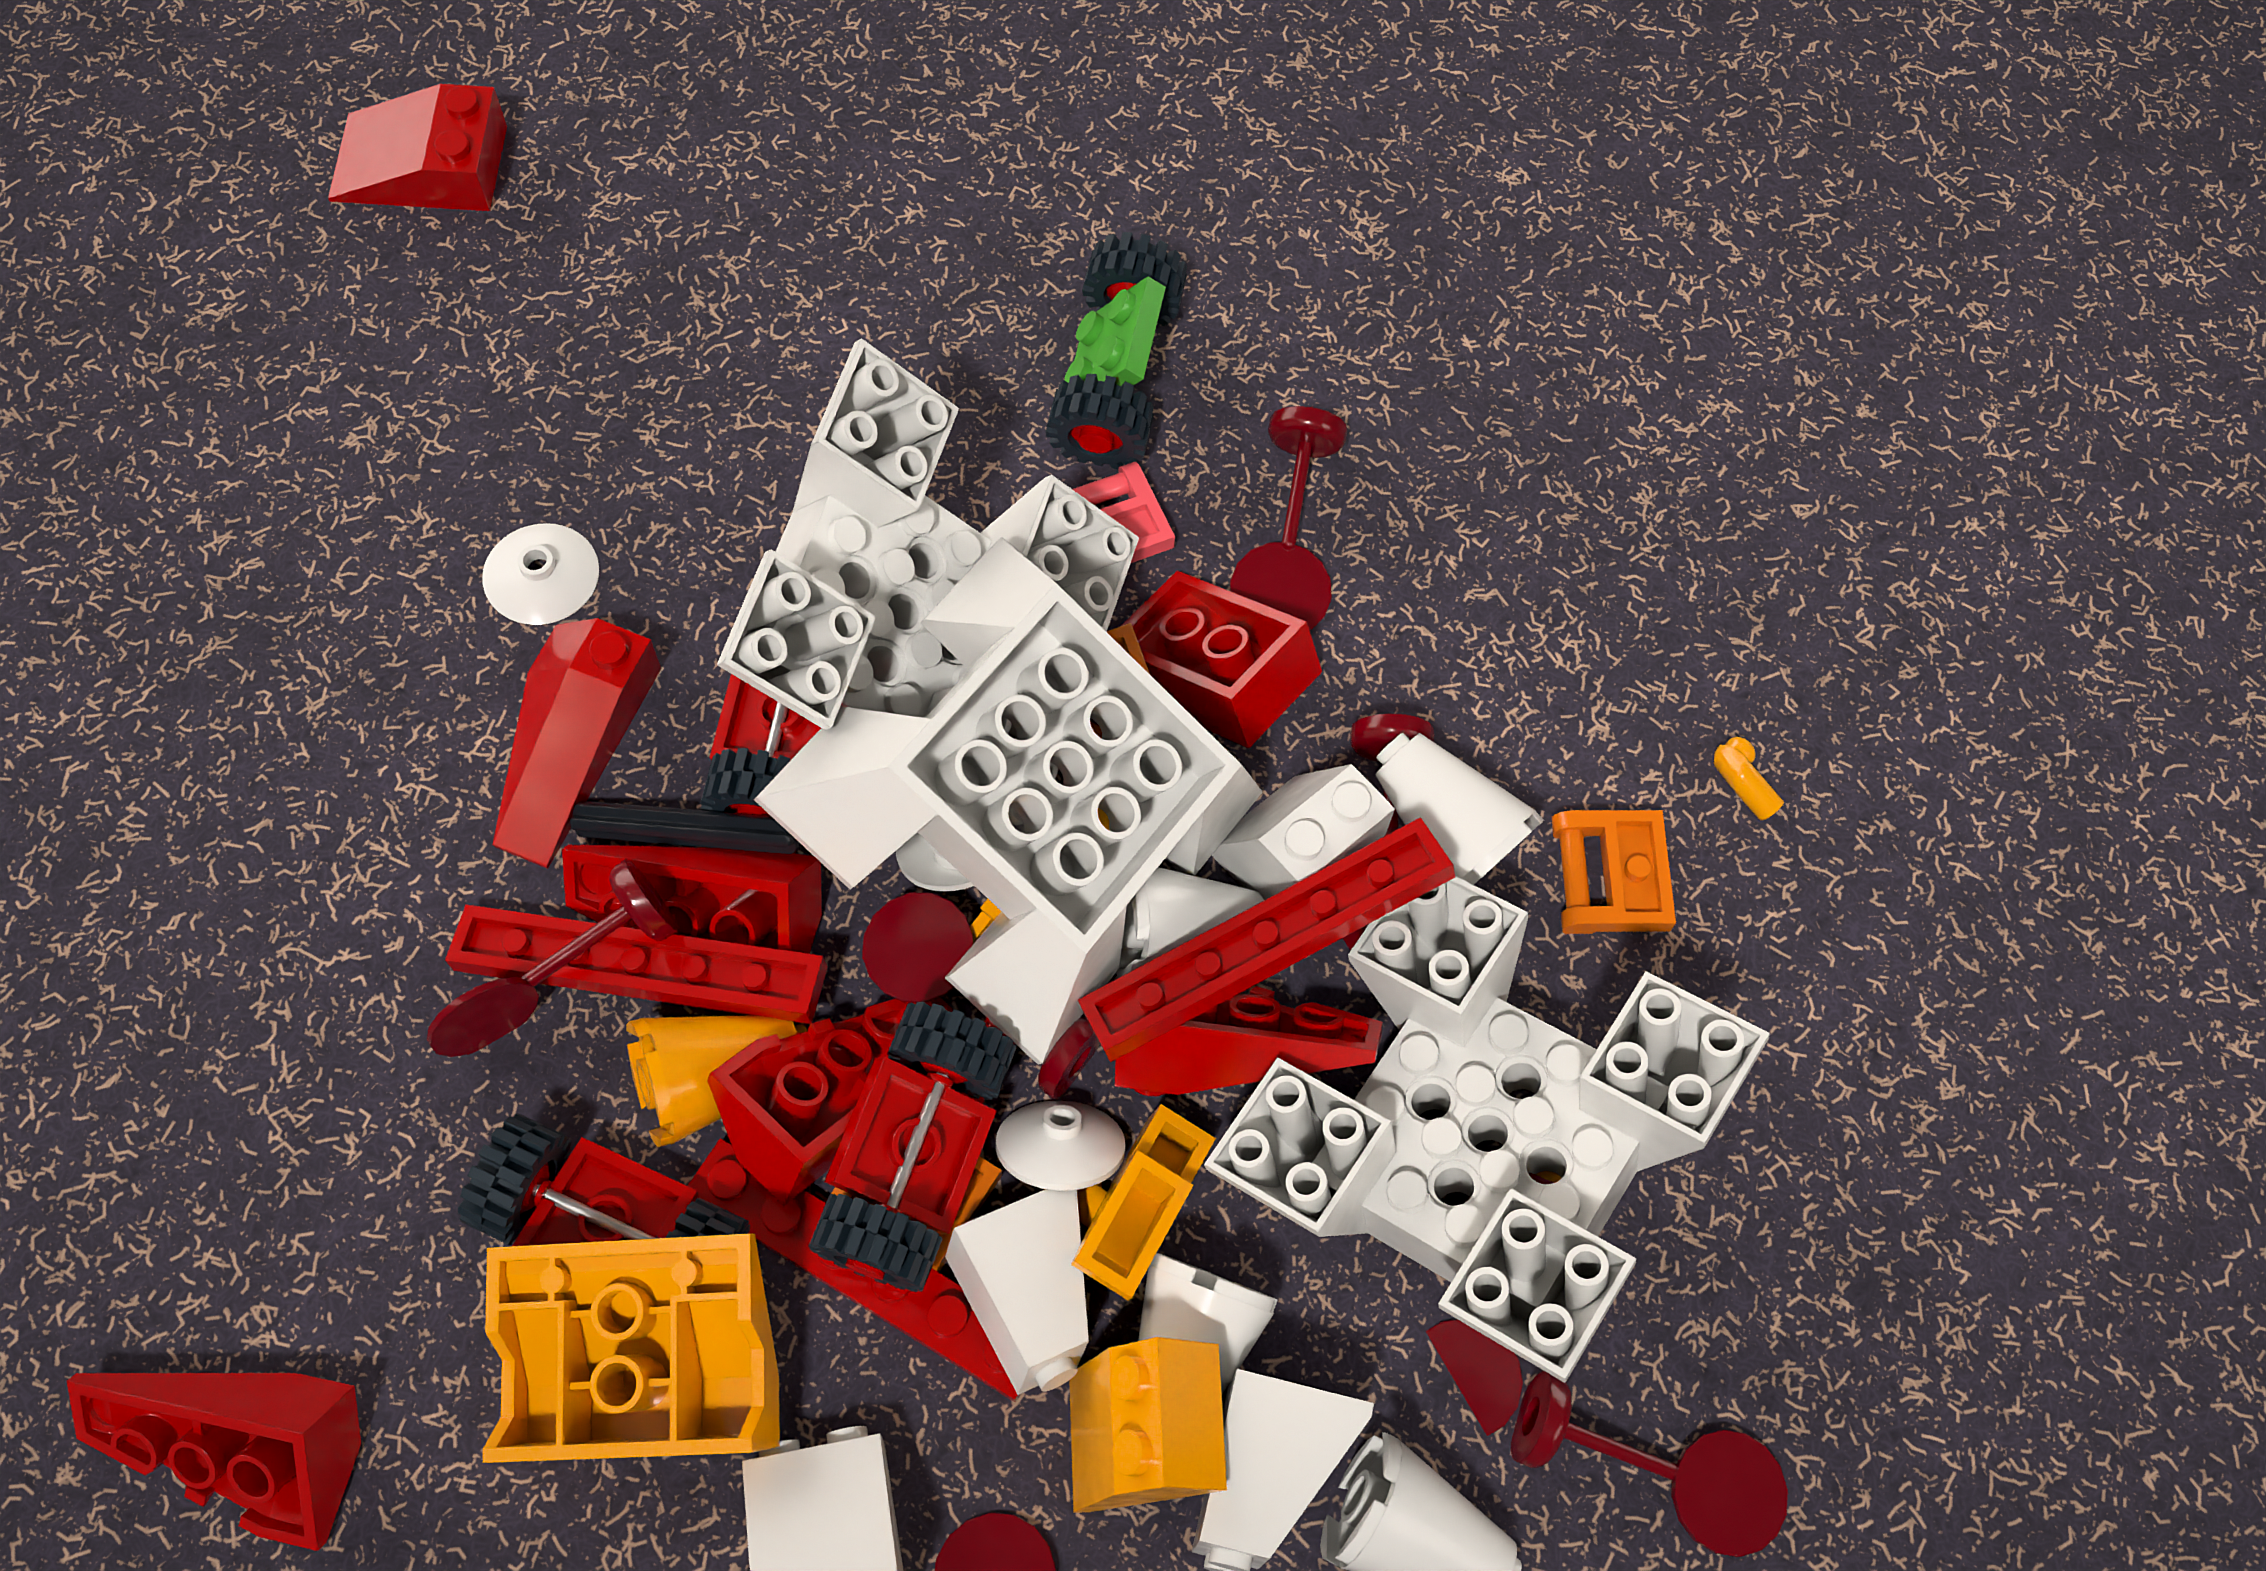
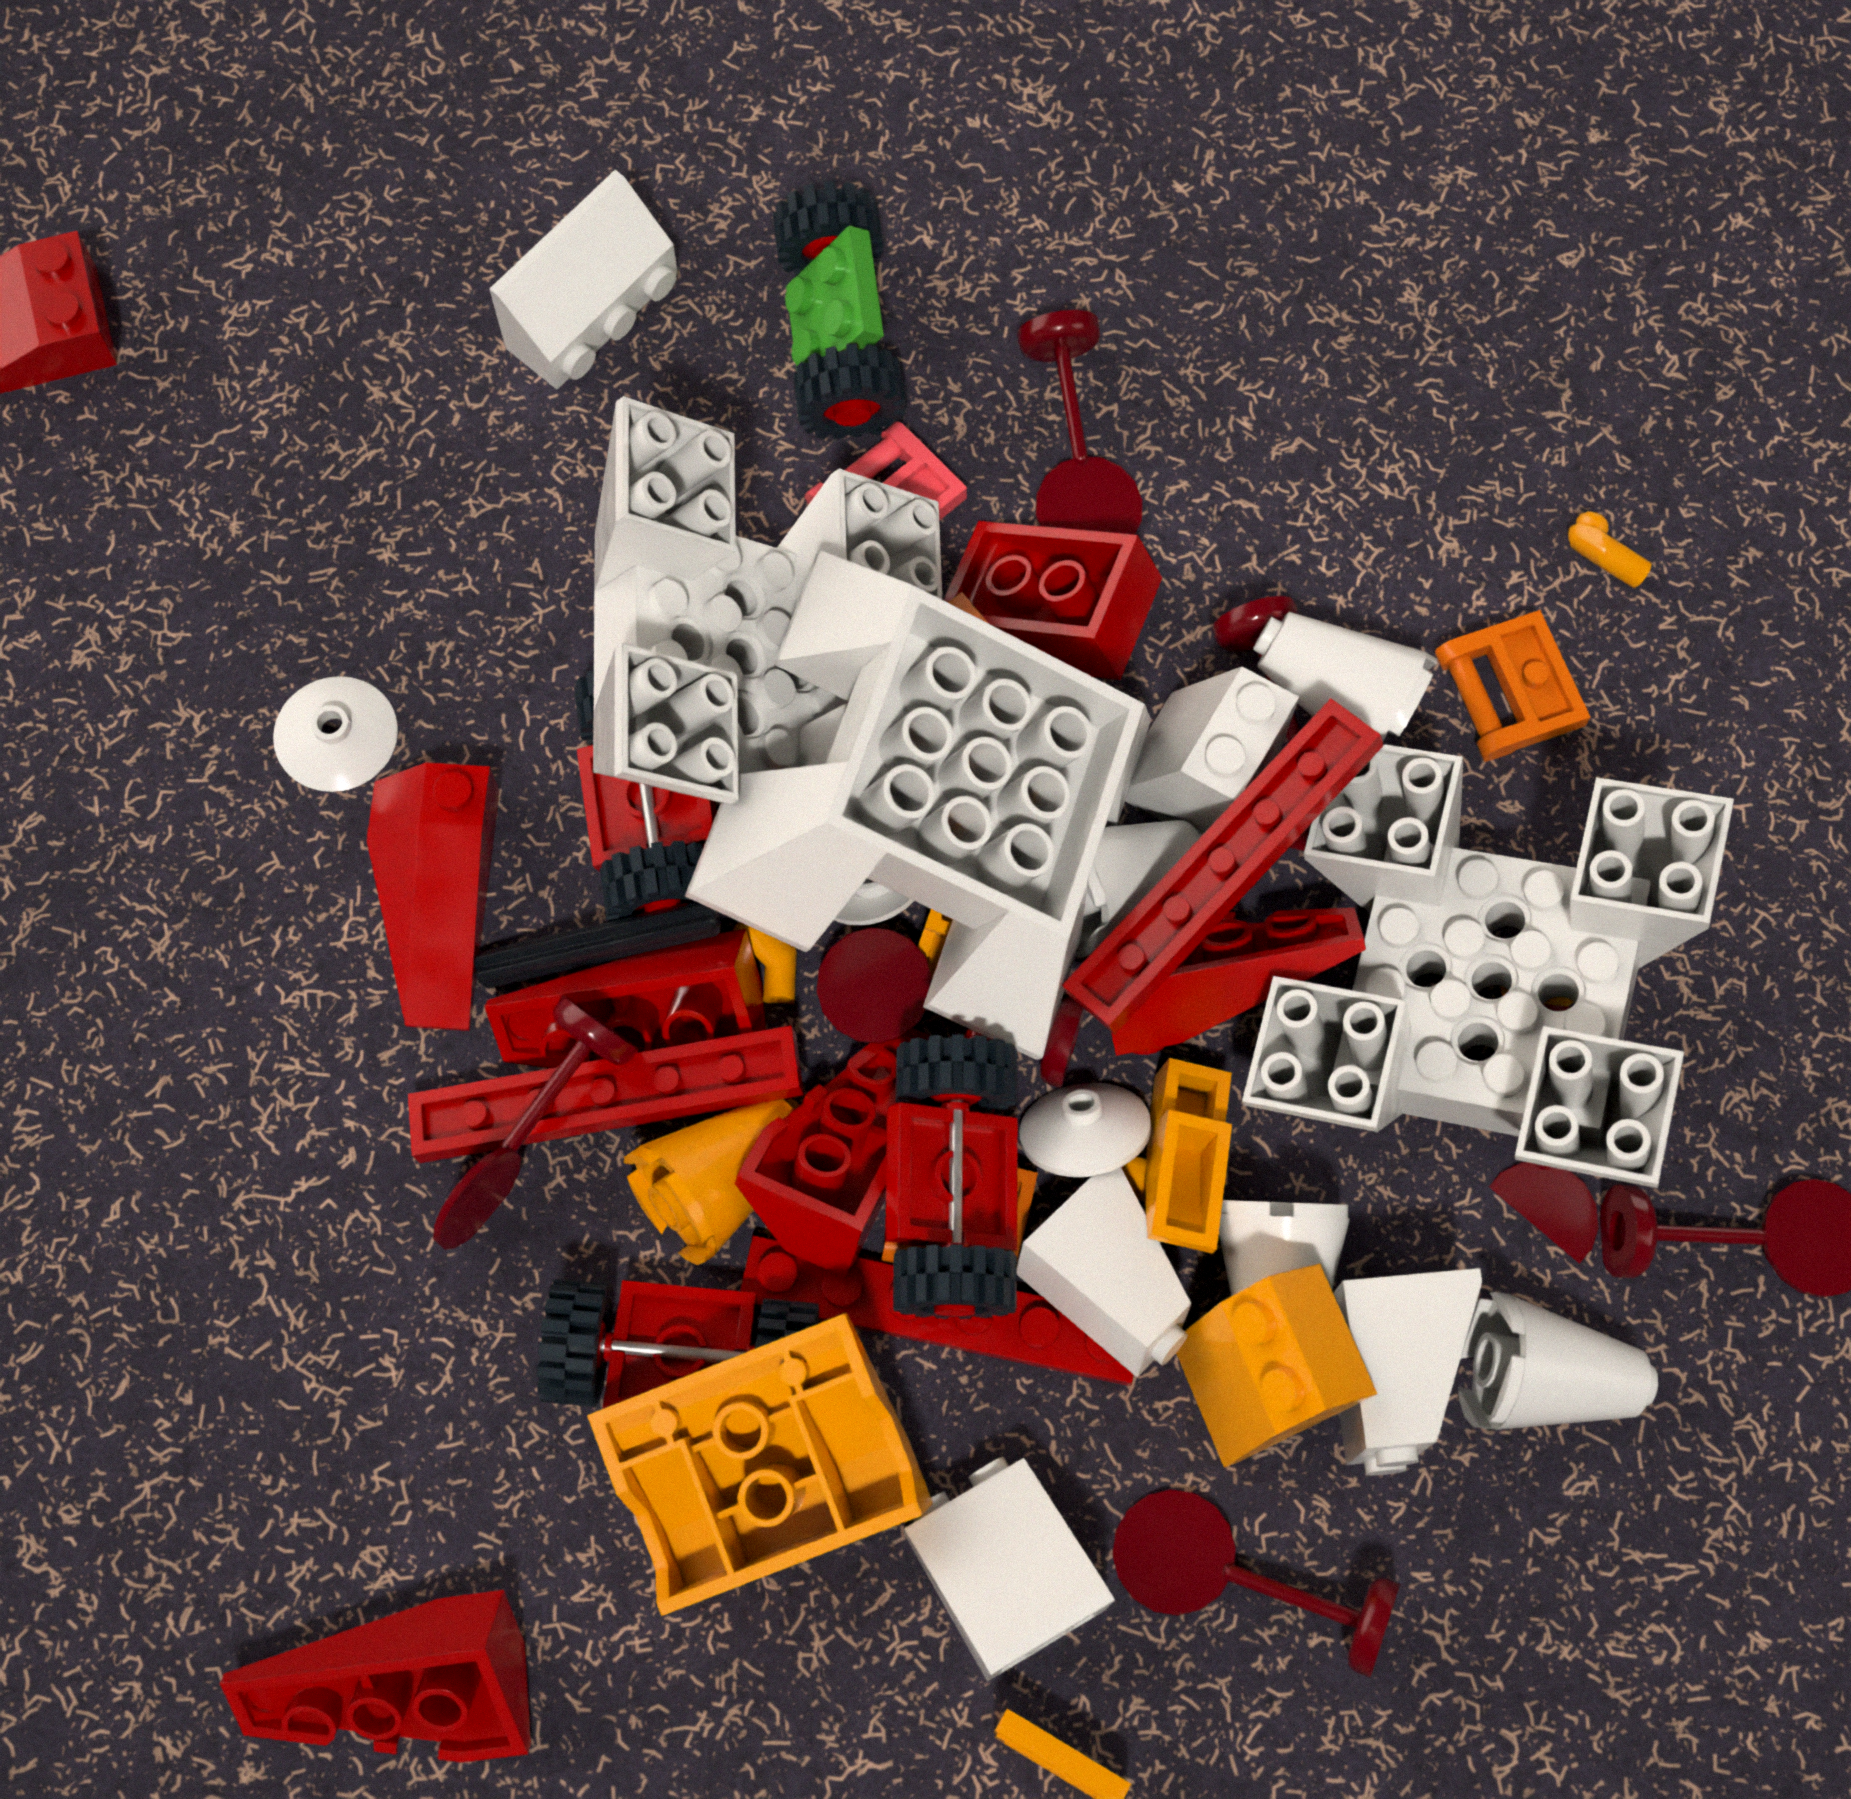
camera: 15 degrees left, 5 degrees up
(841, 907) = (779, 964): none -> light orange arm
(905, 258) = (584, 282): none -> white slope

